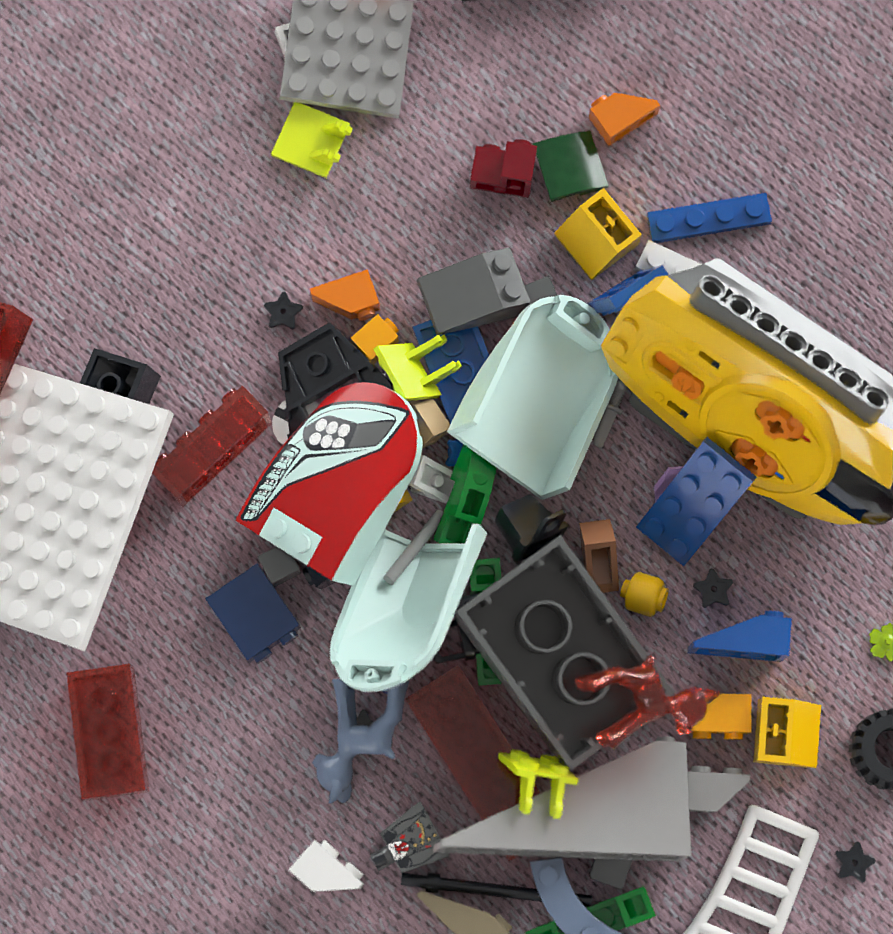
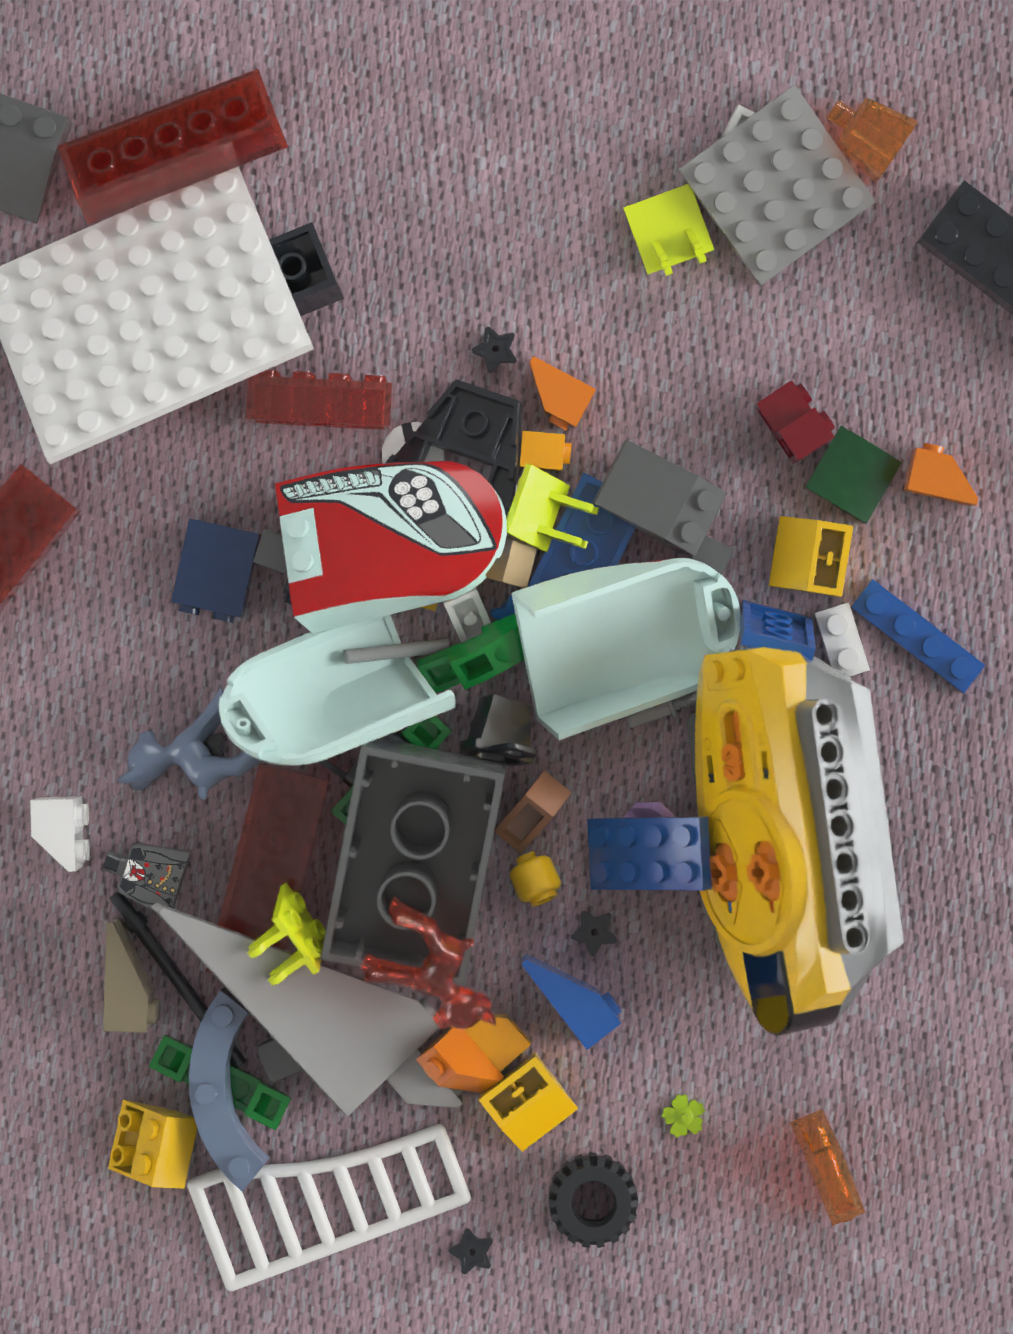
camera: 50 degrees right, 10 degrees up
(721, 751) = (459, 1063): none -> orange slope

